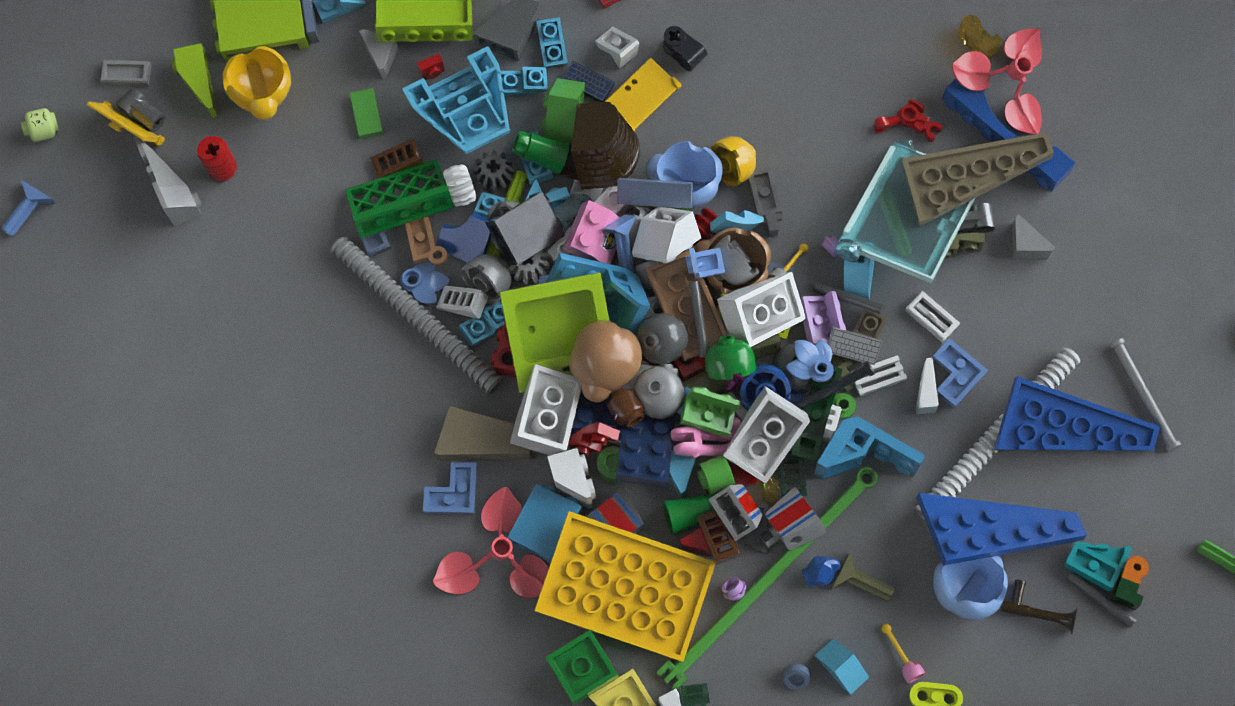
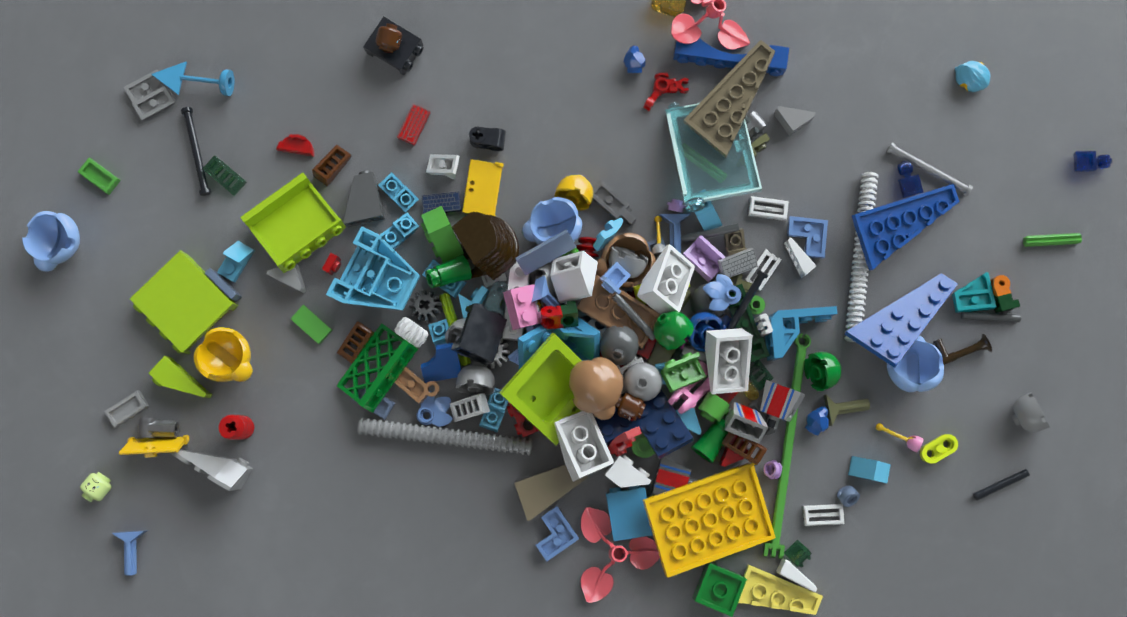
camera: 40 degrees left, 10 degrees up
(620, 263) = (560, 316): none -> leg
(773, 689) = (807, 515): none -> white tile
(819, 261) = (674, 228): none -> medium blue piece
(866, 521) = (822, 370): none -> green cylinder
(897, 70) = (634, 60): none -> blue rock
(1110, 394) = (910, 184): none -> clear blue plate

